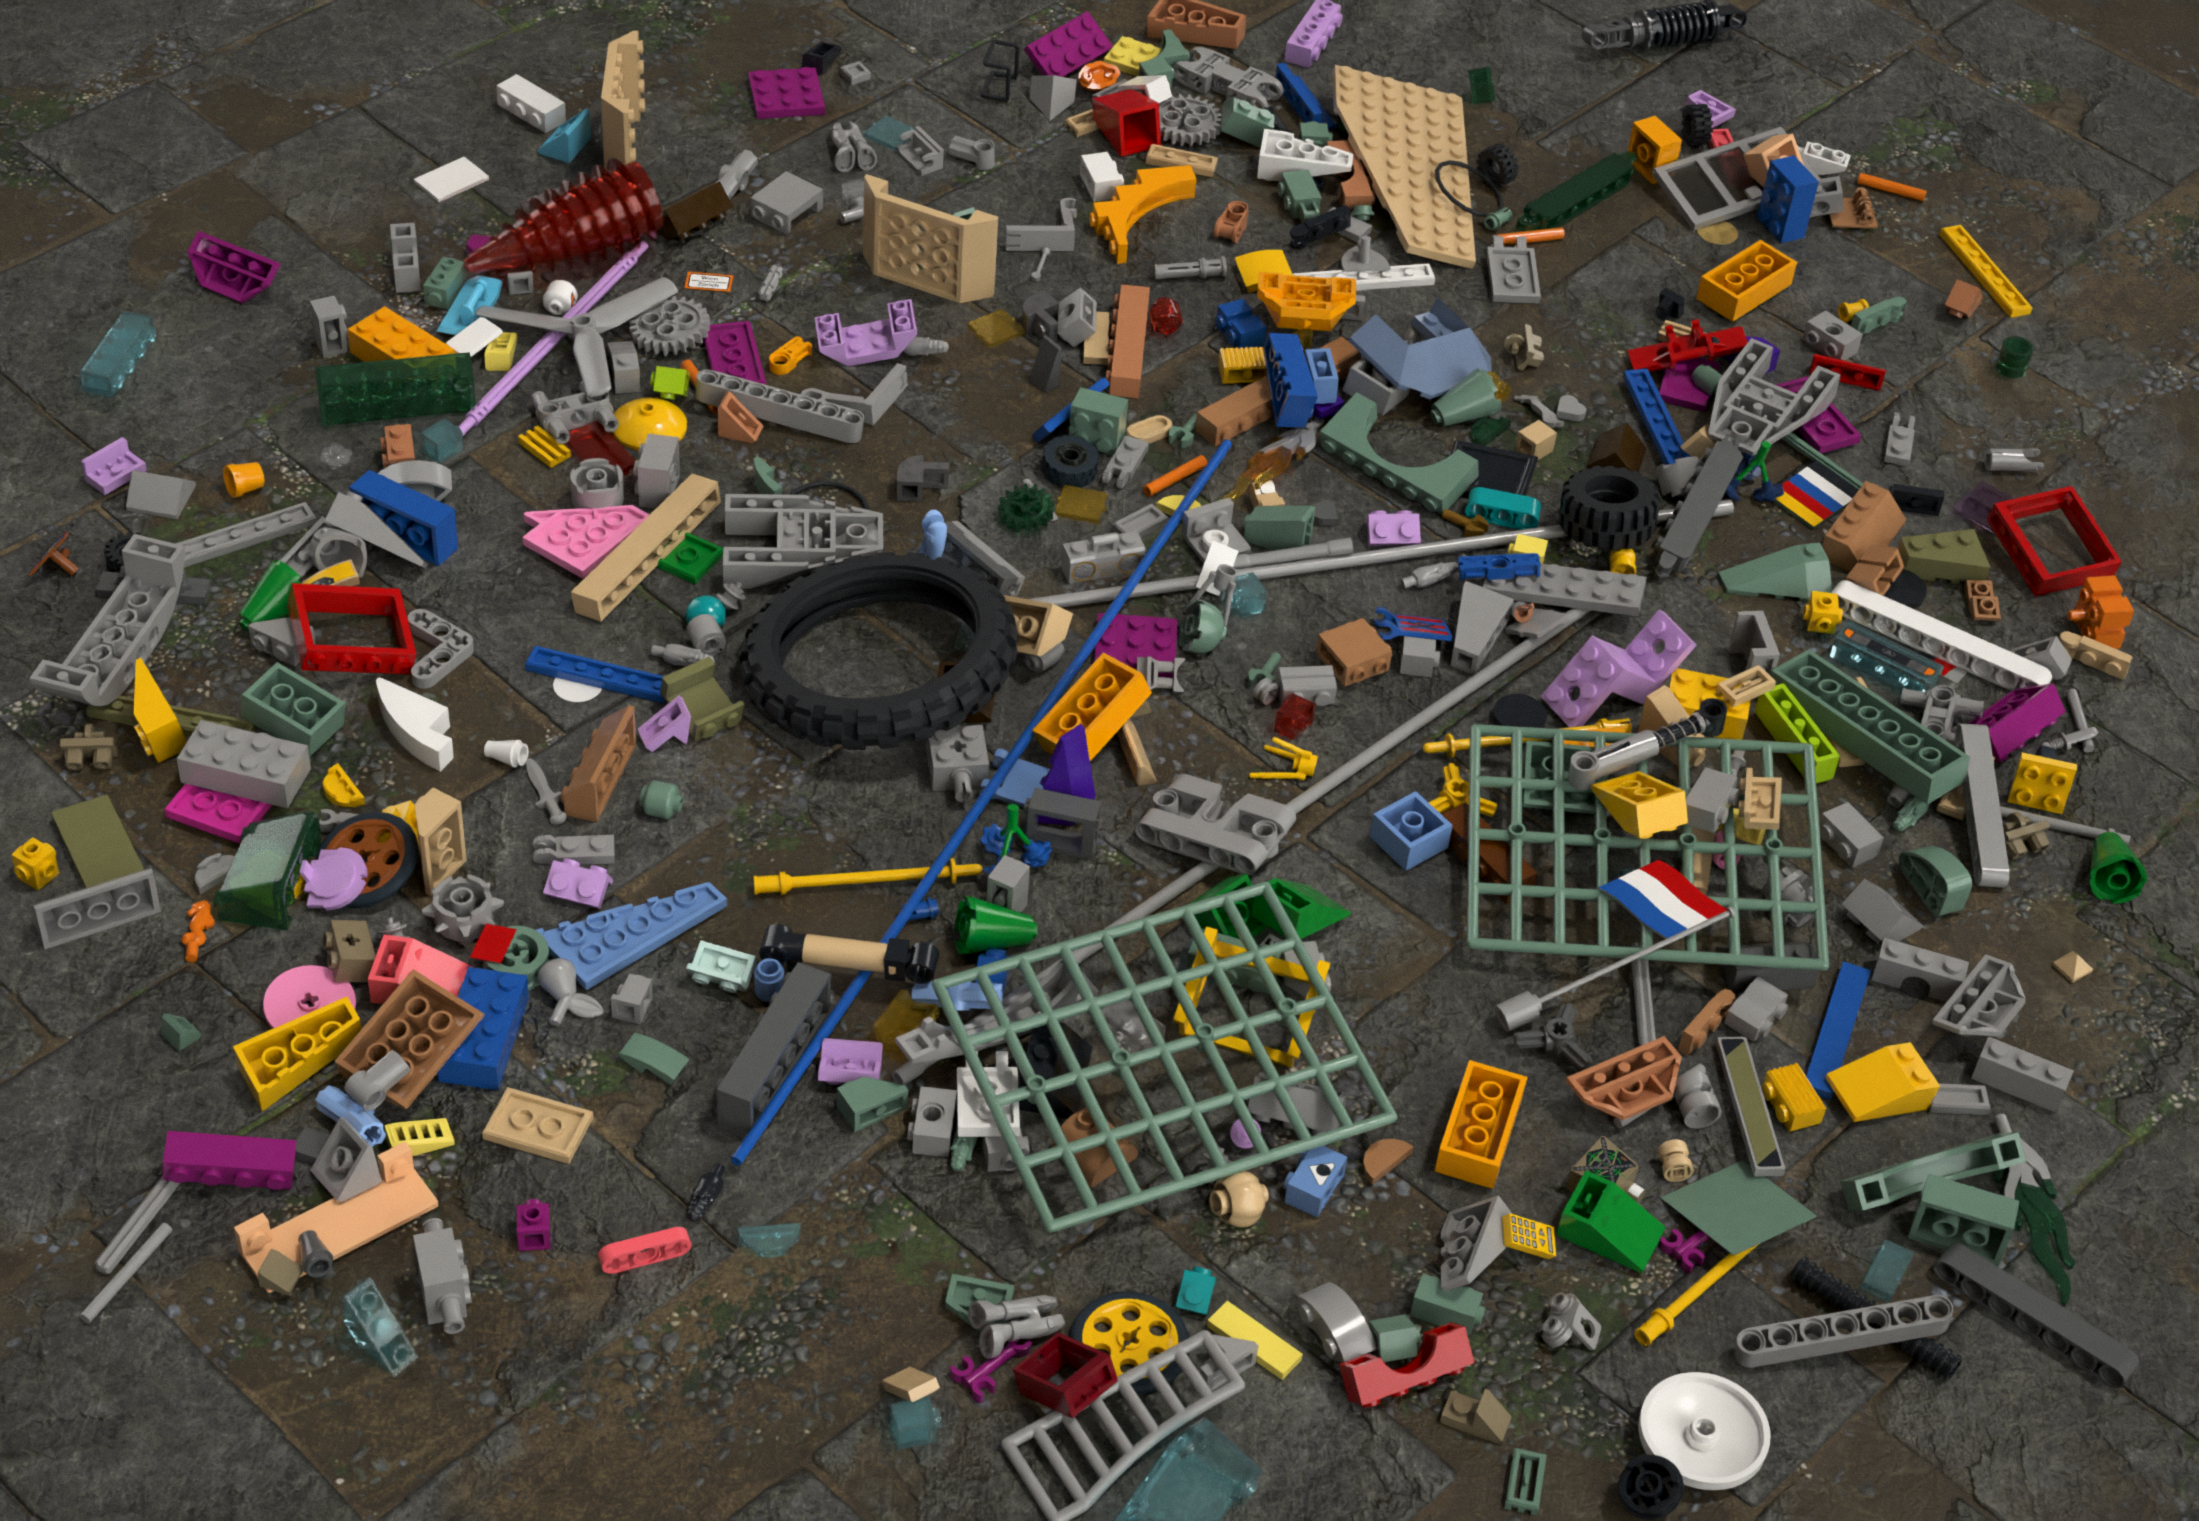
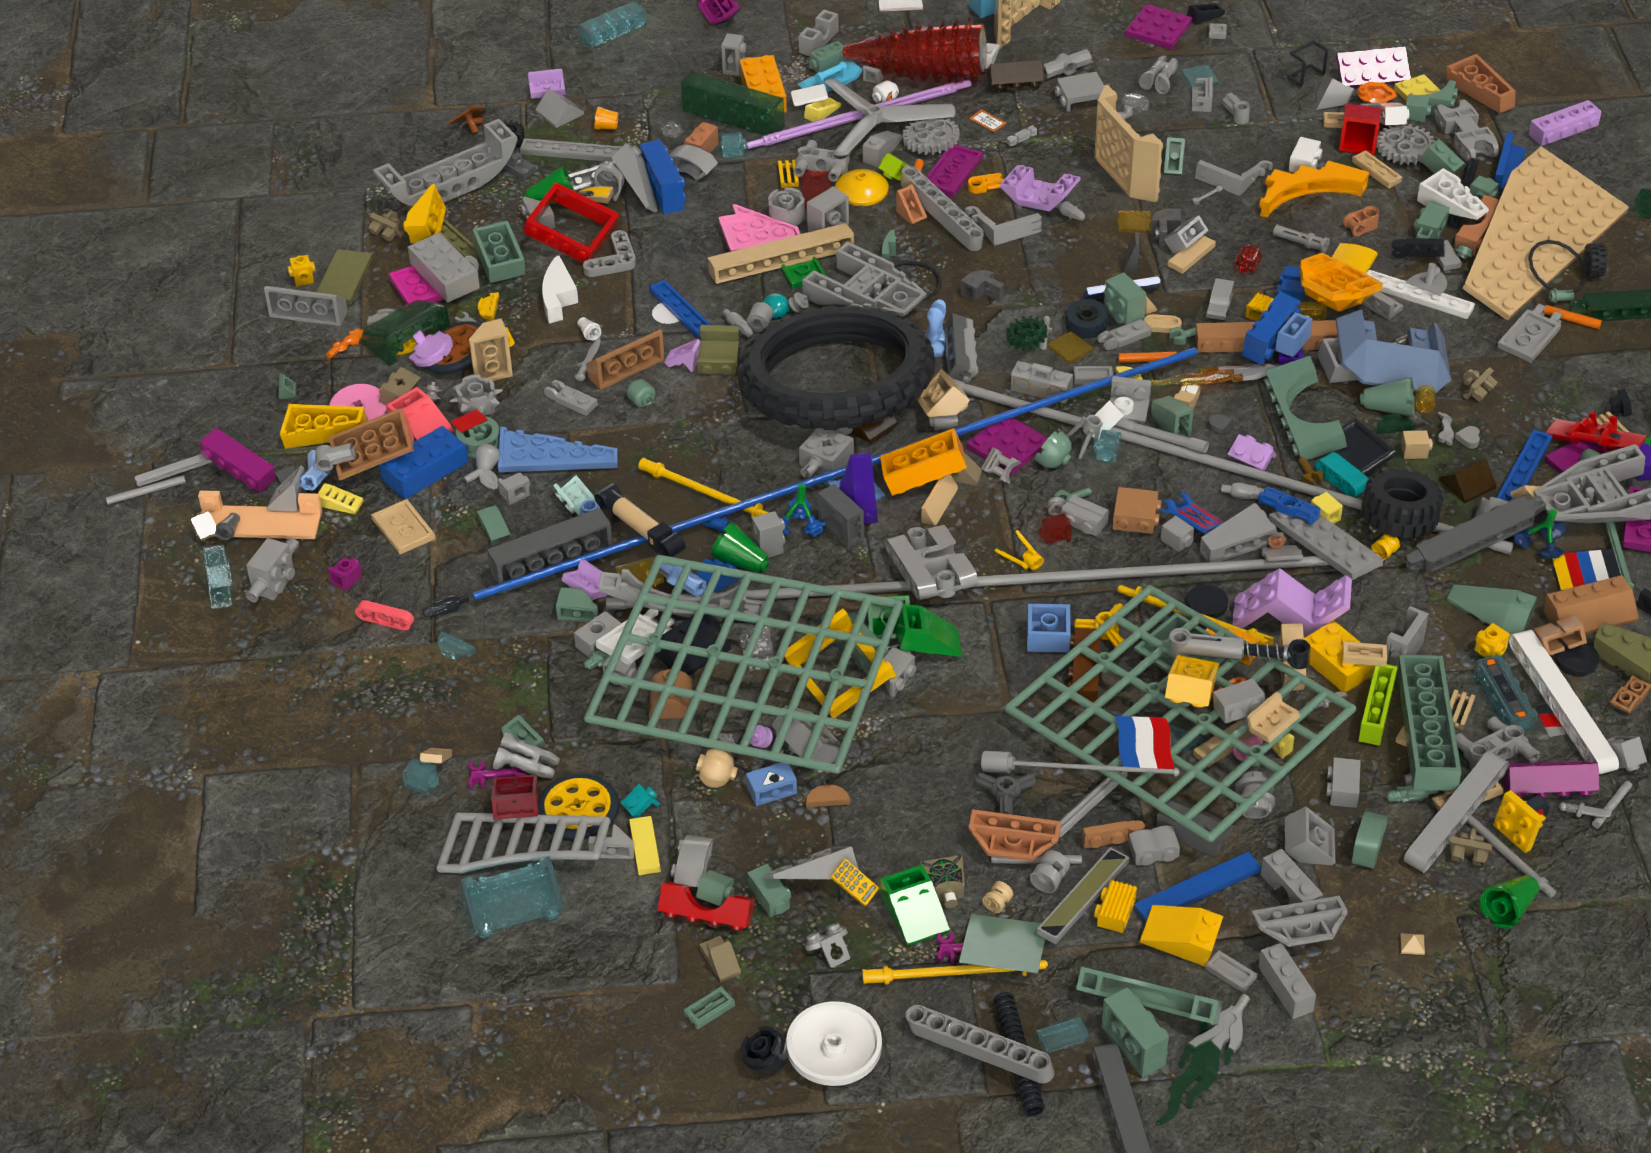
camera: 45 degrees right, 0 degrees up
(577, 884) = (550, 414): lavender bracket -> none
(1129, 341) = (1205, 264): nougat brick -> none
(1183, 374) = (1220, 299): none -> light grey piece
(1480, 1124) = (898, 808): light orange brick -> none

